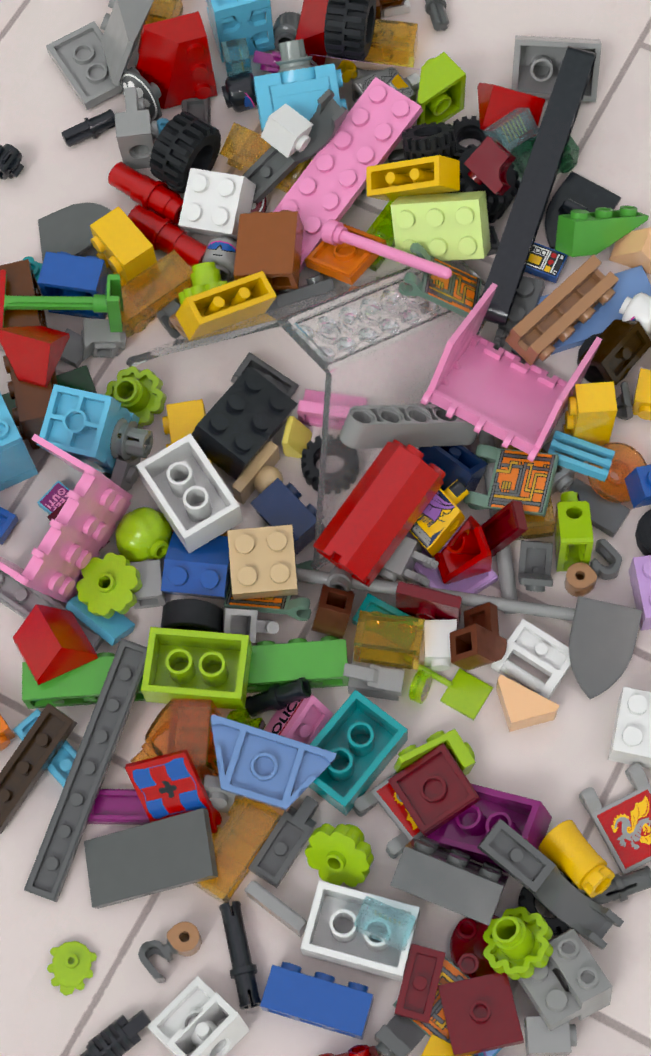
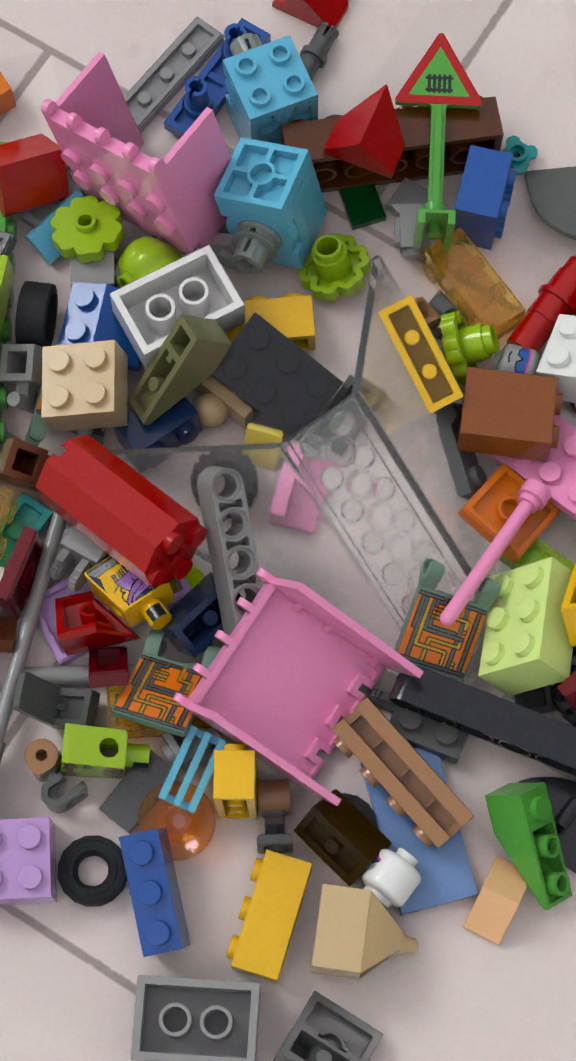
camera: 90 degrees right, 5 degrees up
(121, 245) = (529, 249): yellow brick -> none
(247, 483) = (180, 365): none -> olive slope
(545, 262) = (492, 768): tile -> none

